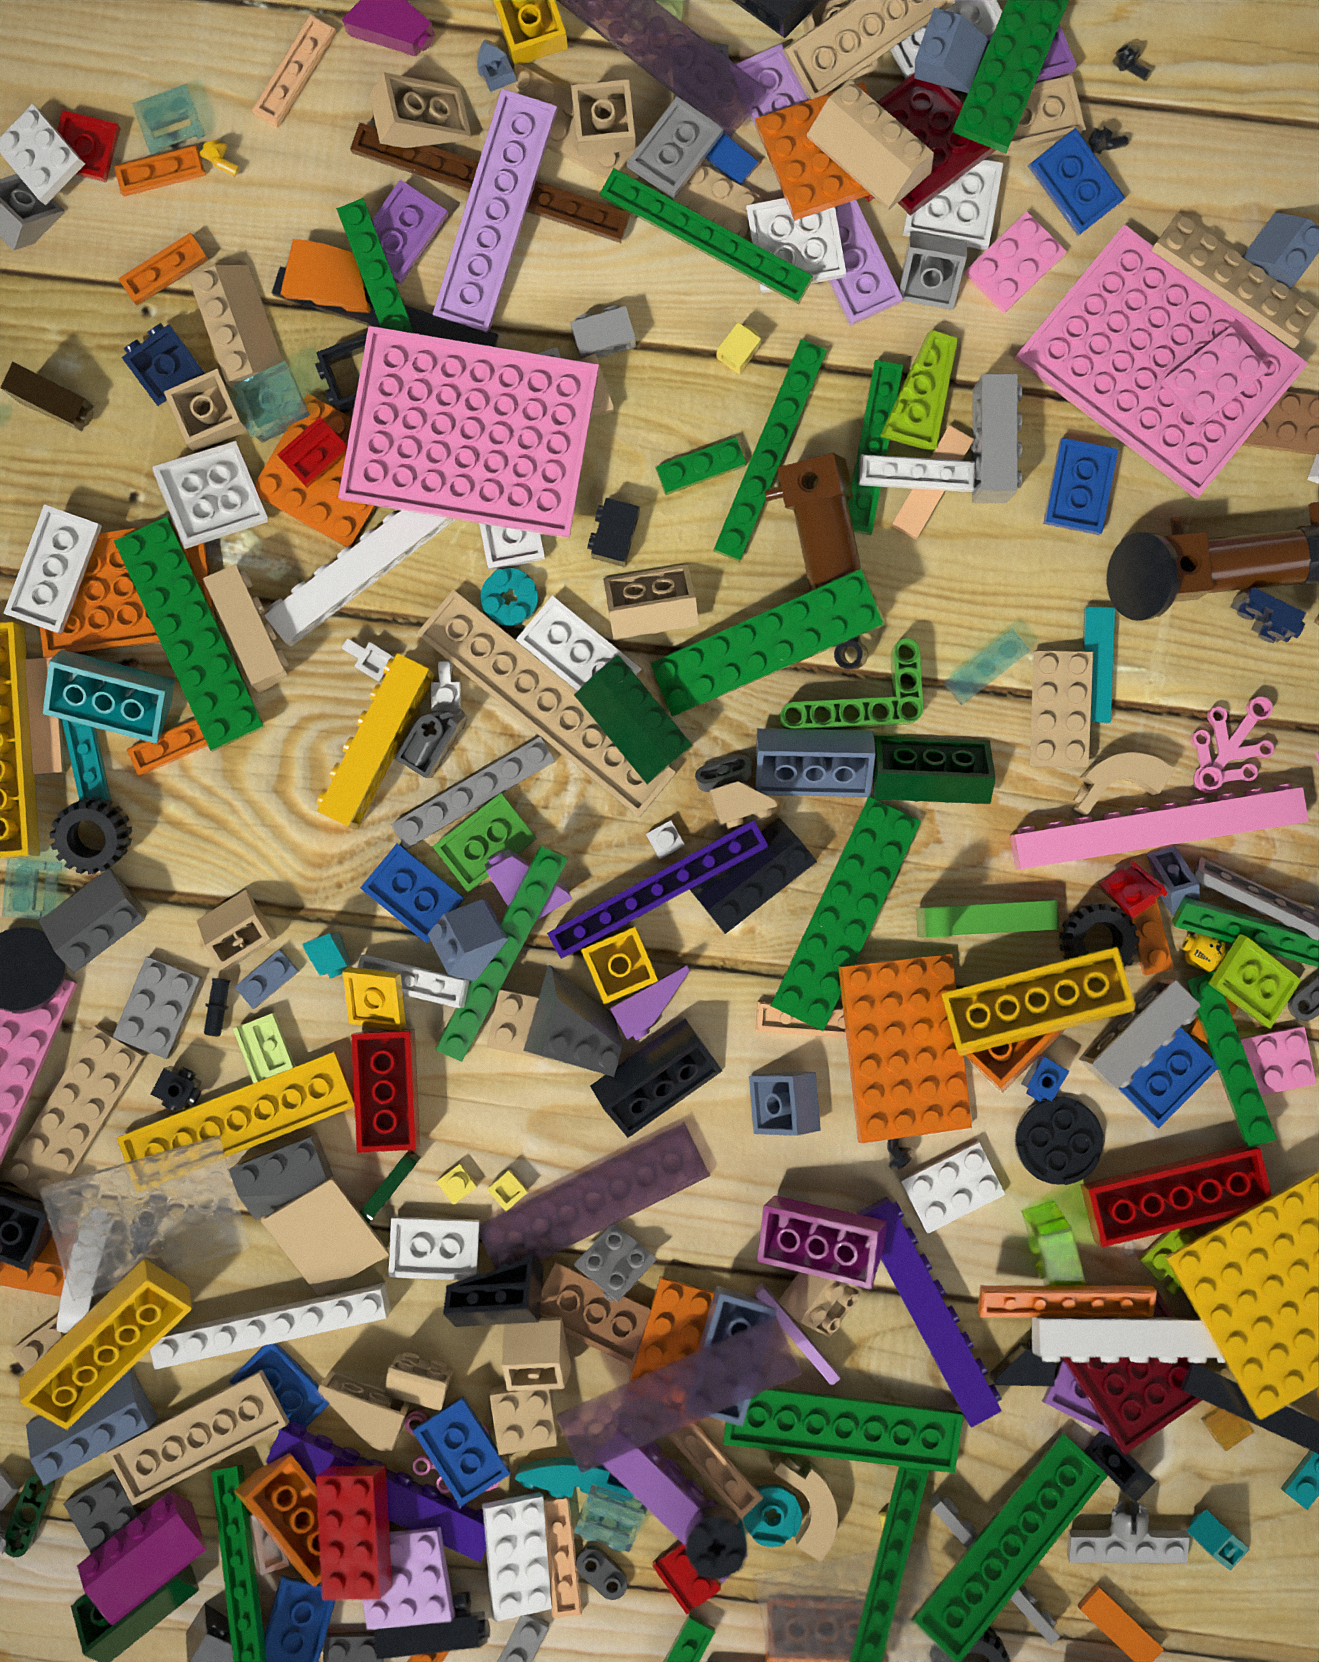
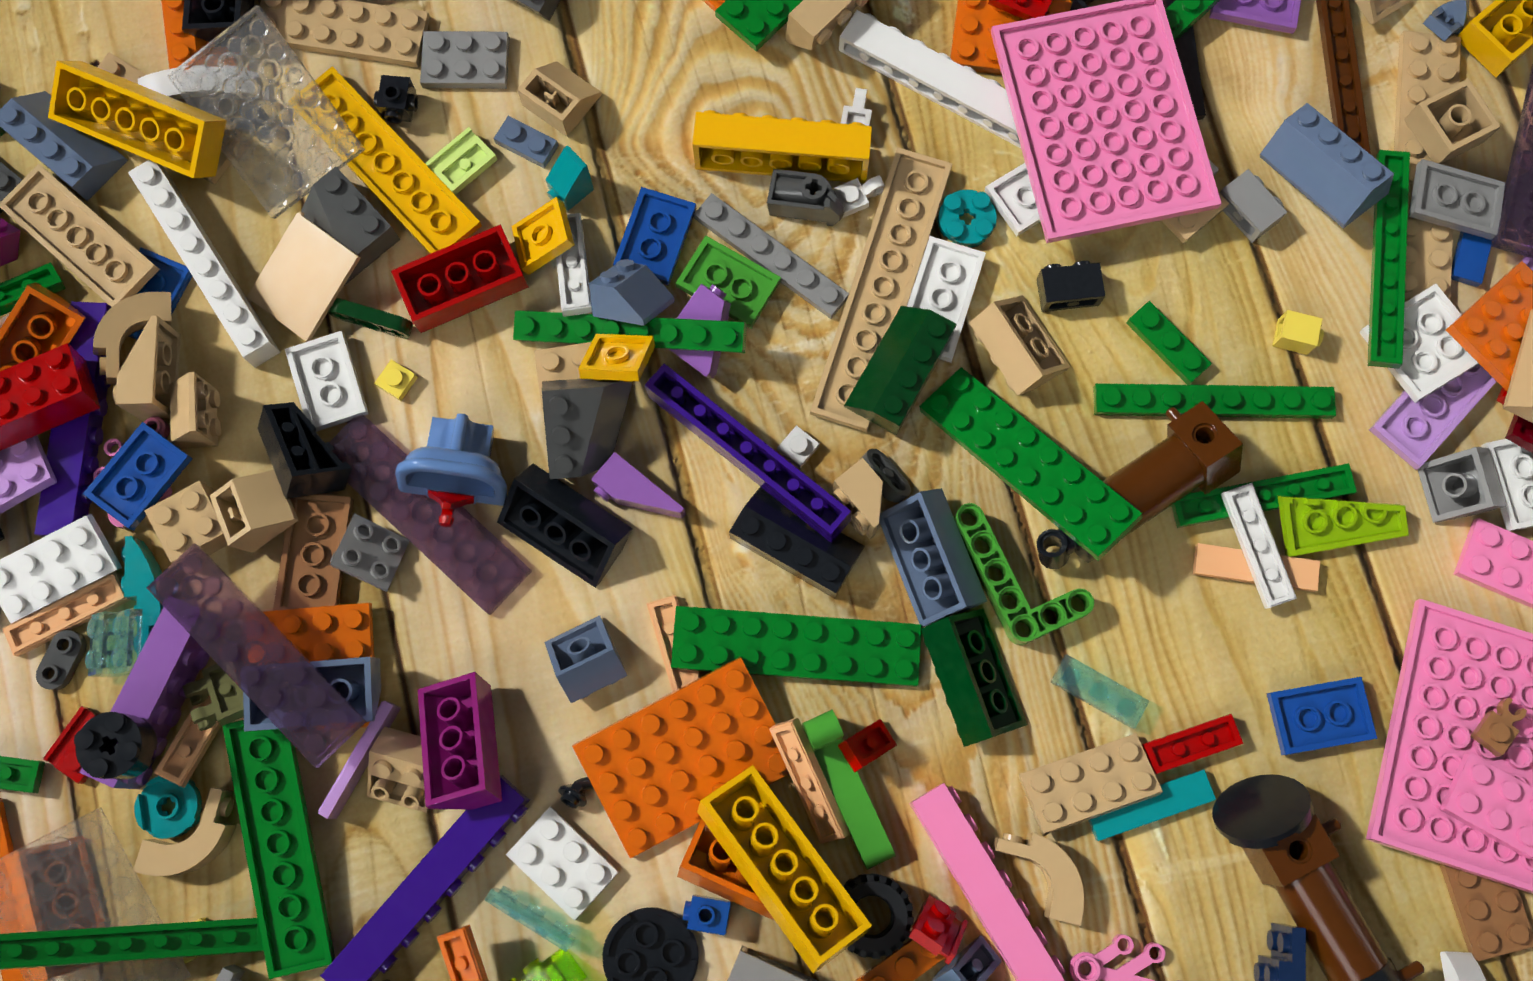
camera: 70 degrees right, 10 degrees down
(216, 1007) = (484, 108): black axle -> none
(306, 1421) = (123, 320): none -> tan arch
(495, 210) = (1318, 66): lavender plate -> none
(507, 1190) = (405, 427): light yellow plate -> none
(528, 974) = (616, 357): none -> yellow plate
(568, 1158) = (454, 467): none -> medium blue piece
(596, 250) = (1327, 165): none -> sand blue slope
(619, 965) = (660, 445): yellow brick -> none
(703, 1434) = (224, 695): none -> olive plate
(957, 886) = (867, 745): none -> red plate
(968, 948) = (809, 780): none -> light nougat tile
(989, 1230) = (531, 917): none -> clear light blue plate
(995, 438) = (1330, 609): light grey brick -> none
(1061, 607) = (1192, 743): none -> red plate
(1152, 347) = (1496, 729): none -> medium nougat plate

